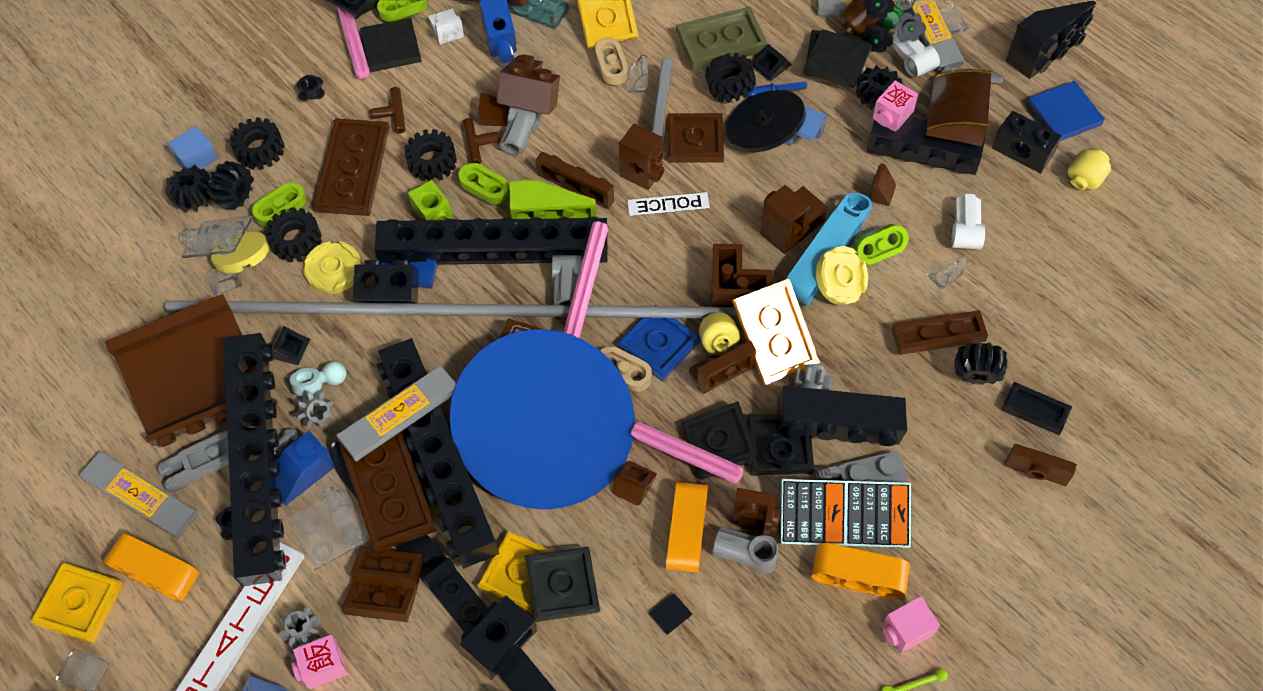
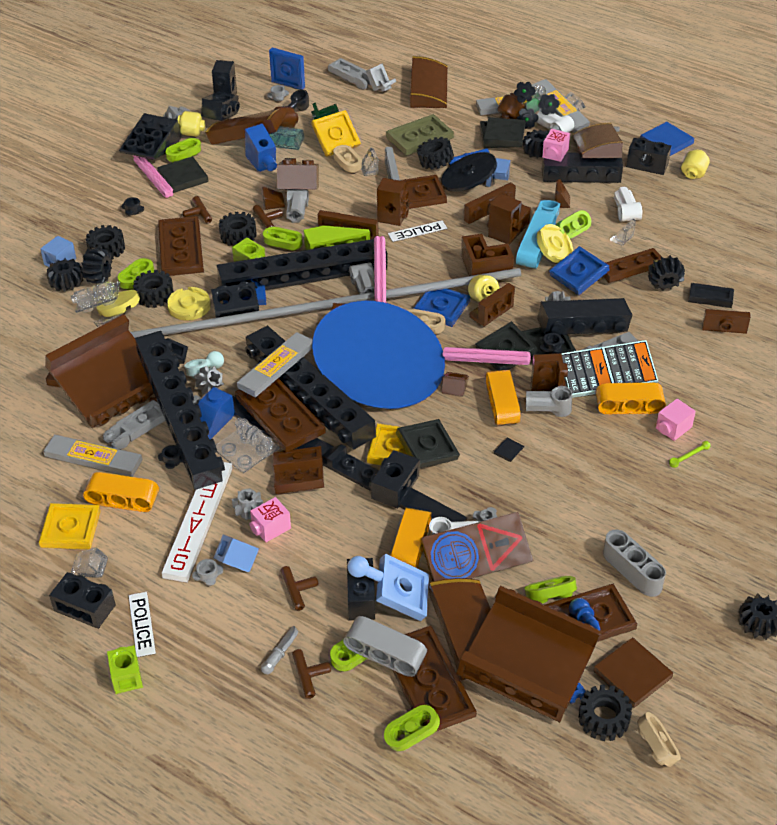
camera: 15 degrees left, 15 degrees down
(446, 26) = (220, 157): white bracket -> none
(771, 63) = (460, 143): black slope -> none
(777, 330) = (521, 270): tile -> none
(792, 175) = (478, 208): none -> reddish brown plate
(862, 327) = (579, 270): none -> blue tile
(1048, 36) = (641, 98): black slope -> none

